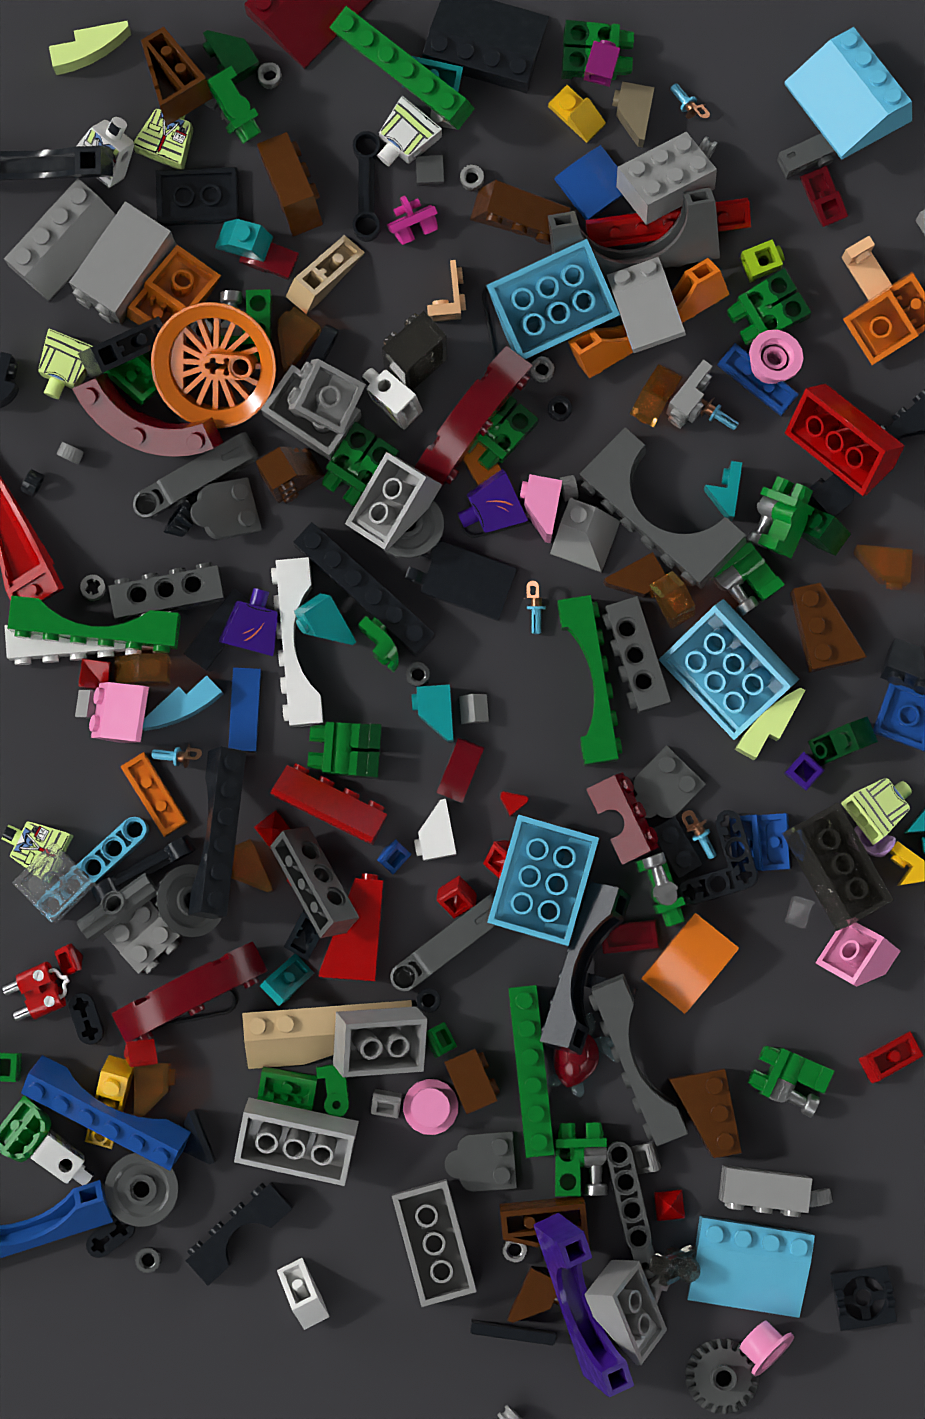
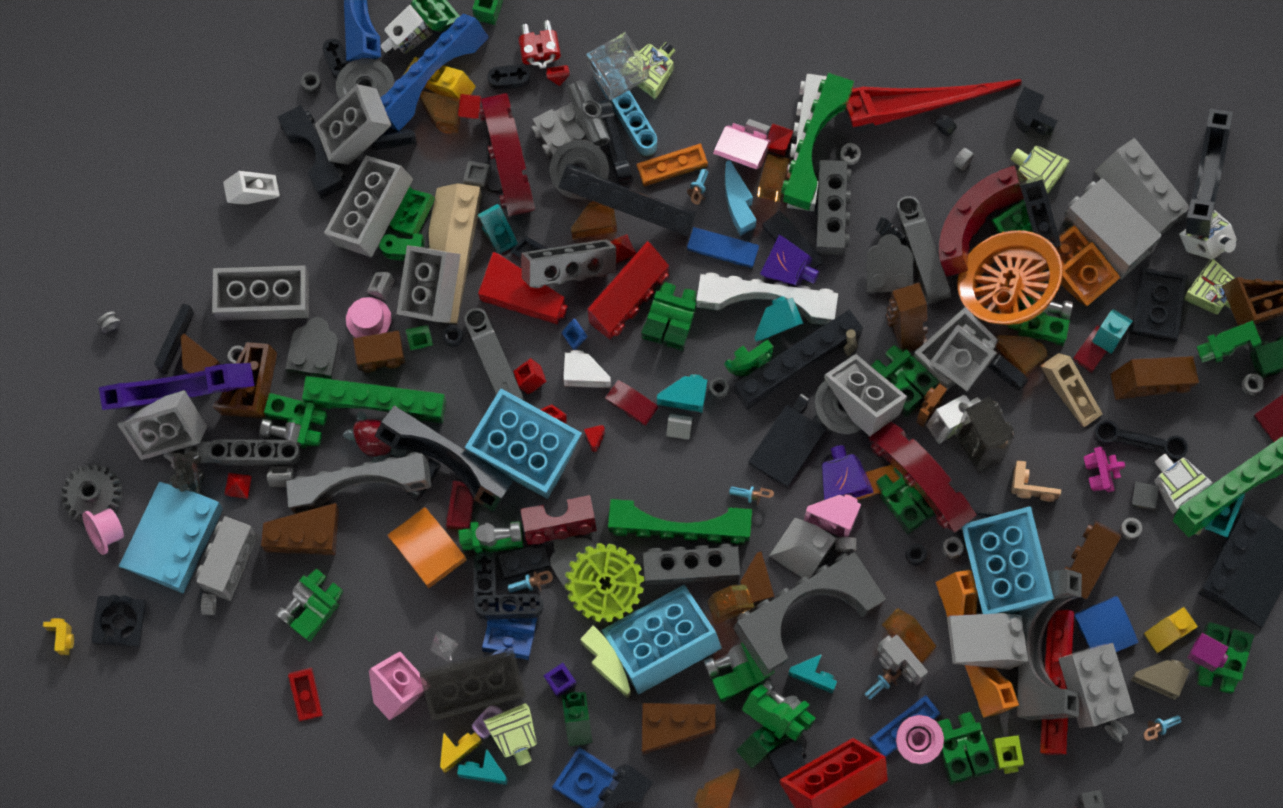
camera: 105 degrees right, 10 degrees down
(200, 1187) = (352, 124): none -> light grey brick
(220, 1024) = (477, 174): none -> dark grey tile
(331, 532) = (851, 342): none -> dark tan piece
(384, 425) = (932, 401): none -> dark orange plate
(668, 759) = (622, 579): none -> lime piece
(902, 1354) = (64, 638): none -> yellow bracket

